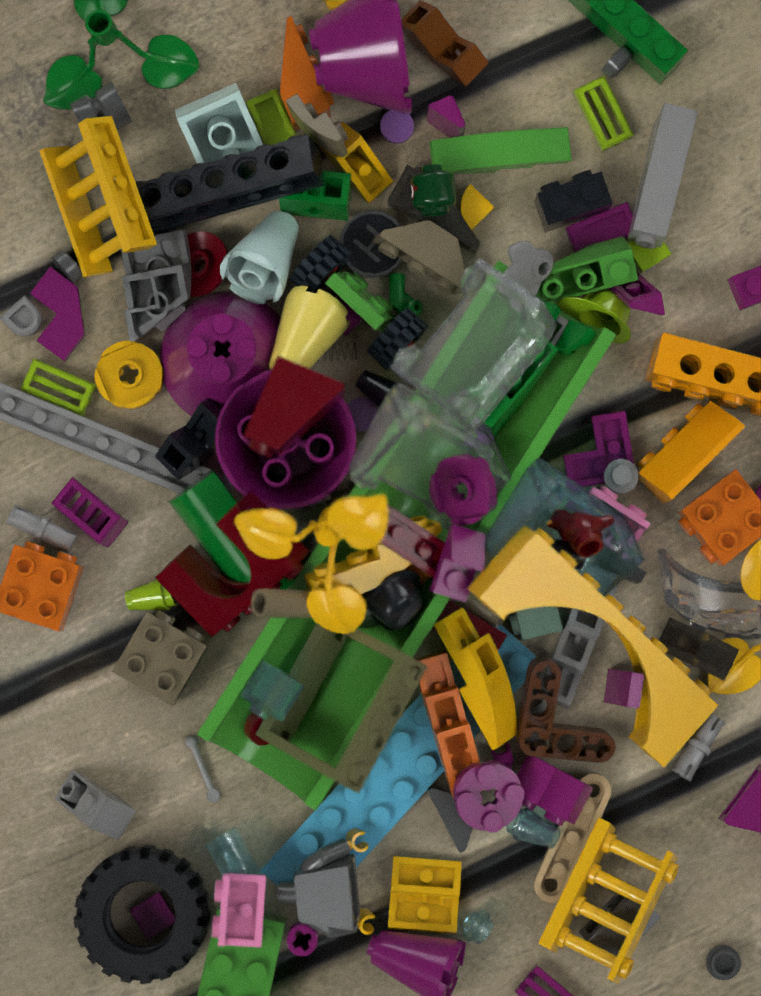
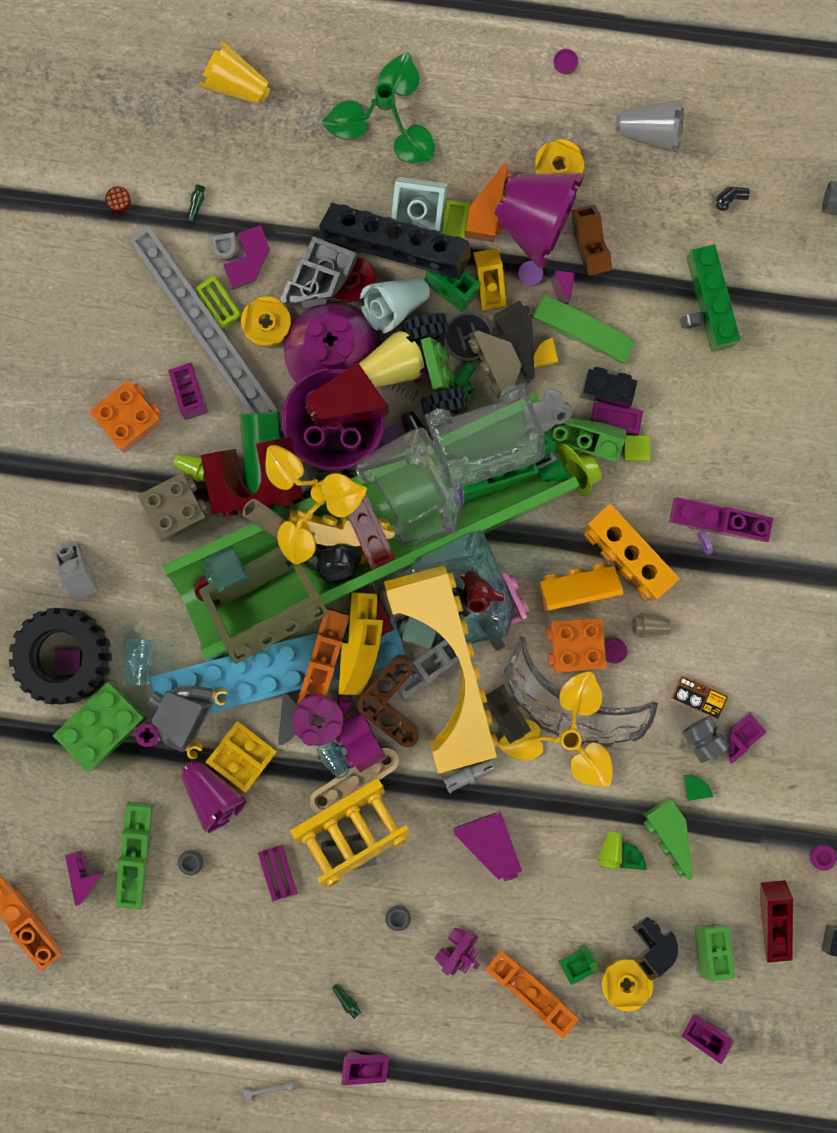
camera: 35 degrees right, 0 degrees up
(41, 528) = (152, 382): light grey pin -> none
(67, 265) = (271, 230): dark grey tile -> none
(105, 100) = (361, 149): dark grey wheel -> none
(118, 189) = (330, 202): yellow fence -> none
(191, 444) = (274, 388): black brick -> none
(213, 794) = (152, 612): light grey hinge -> none
(241, 909) = (119, 691): bright pink bracket -> none
(319, 128) = (478, 241): dark tan slope -> none
(433, 191) = (524, 325): dark green head -> none
(459, 560) = (390, 563): magenta slope -> none
(477, 926) = (260, 797): clear light blue plate -> none
(480, 484) = (434, 522): magenta plate -> none
(611, 443) = (528, 563): magenta plate -> none
(615, 139) = (661, 368): lime tile -> none
(621, 476) = (528, 576): light grey plate -> none
(623, 688) = (444, 708): magenta tile -> none
(640, 296) = (611, 472): magenta slope -> none
(661, 175) = (673, 407): light grey slope -> none

